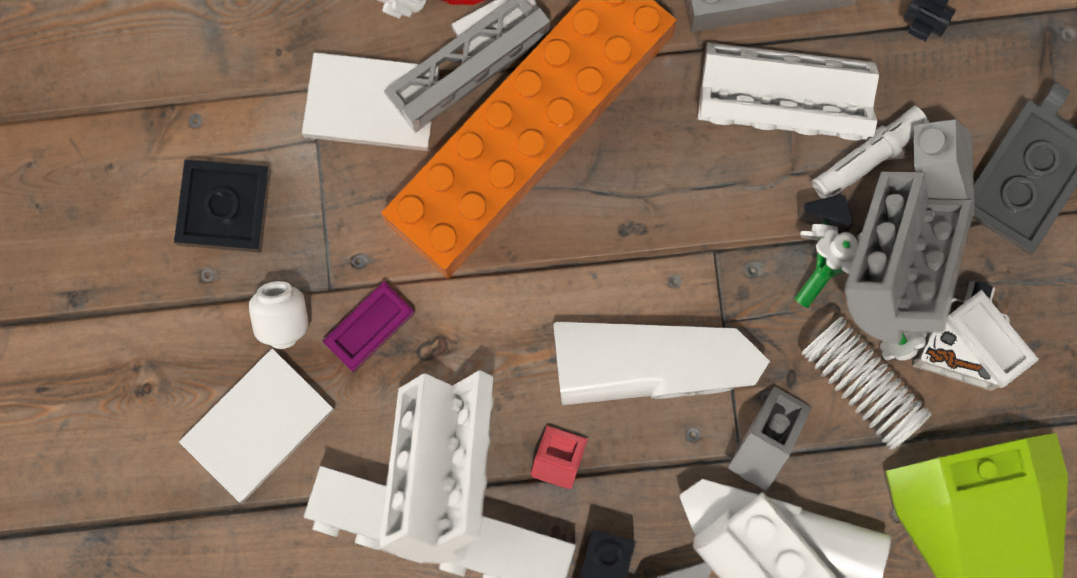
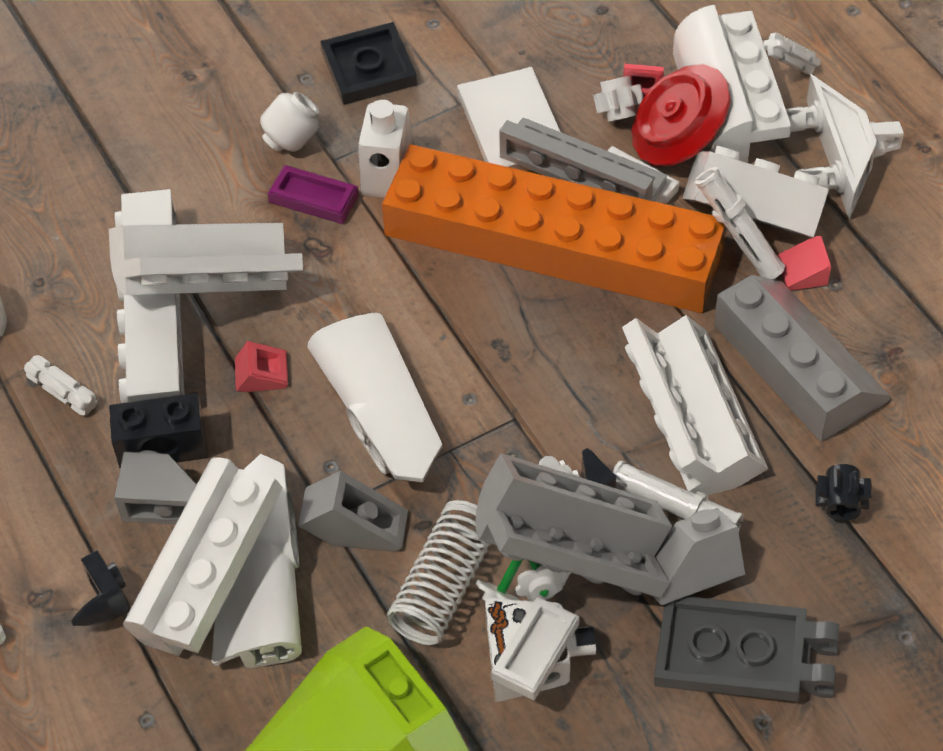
camera: 65 degrees right, 25 degrees down
(256, 426) = (191, 152): white tile -> none
(363, 238) = (384, 132): none -> white torso

